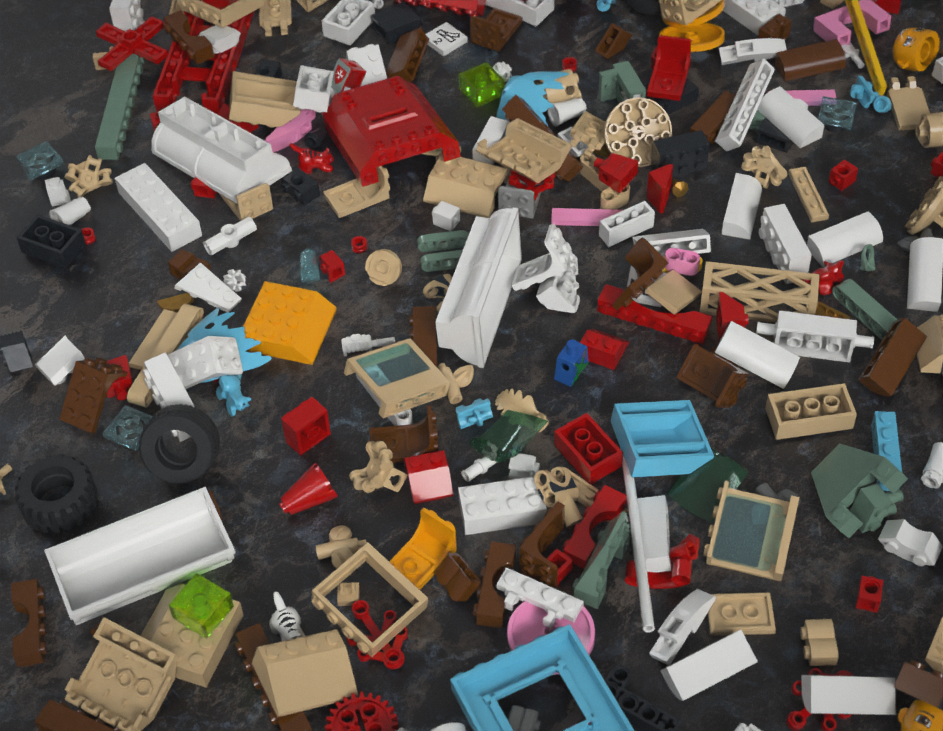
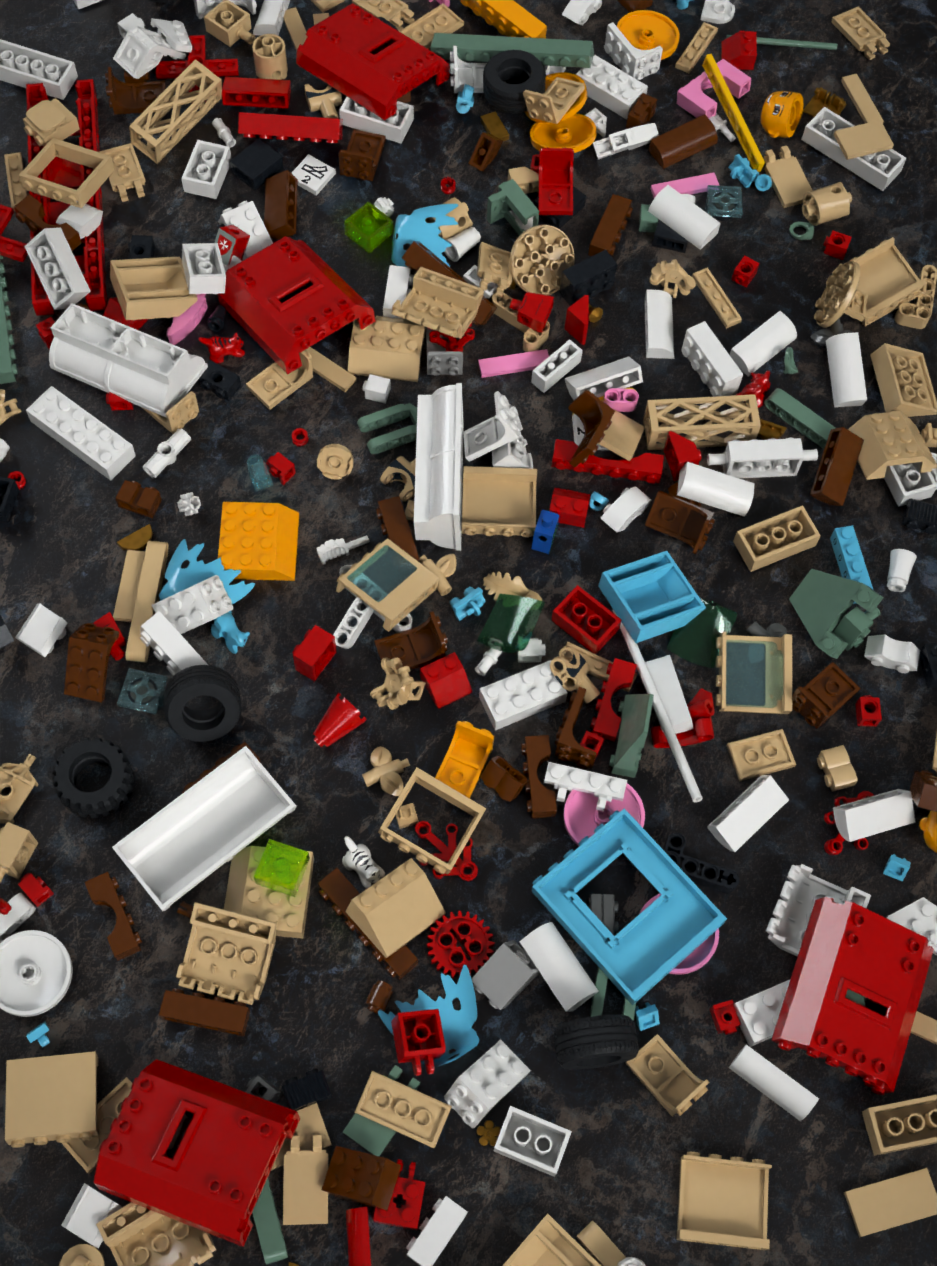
camera: 20 degrees left, 15 degrees up
(183, 67) = (57, 268): none -> white brick
(205, 285) = (166, 518): white wing -> none
(350, 415) = (345, 626): none -> white beam
(406, 194) = (331, 371): none -> tan tile
(533, 329) = (499, 501): none -> tan panel
(629, 23) = (494, 126): none -> pearl gold tile
(636, 345) = (599, 498): none -> medium azure tile
(643, 67) = (525, 178): none -> tan slope
(659, 358) = (625, 509): none -> white brick
(678, 625) = (715, 778): white slope -> none
(731, 33) = (599, 120): none -> white tile
(745, 105) = (637, 210): white brick -> none
(823, 568) = (824, 695): none -> reddish brown bracket
(917, 154) = (809, 228): none -> sand green piece

